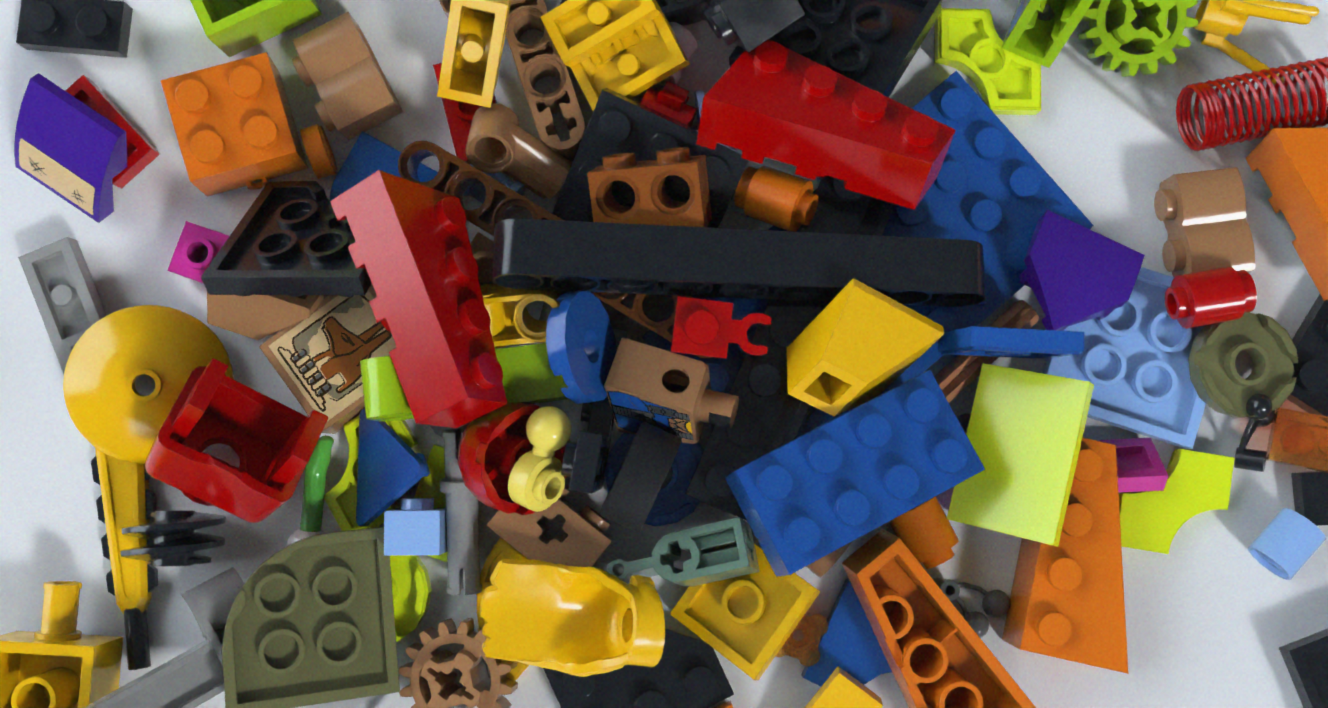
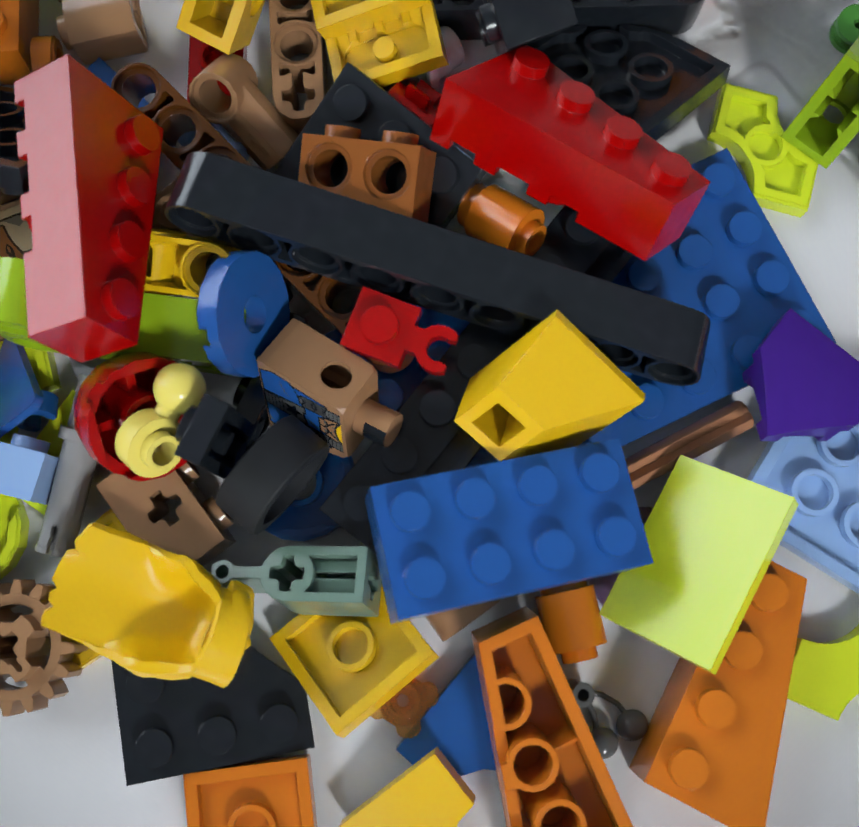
camera: 15 degrees right, 5 degrees down
(1011, 342) = (717, 433): blue tile -> none
(1138, 465) = (828, 613): dark pink plate -> none

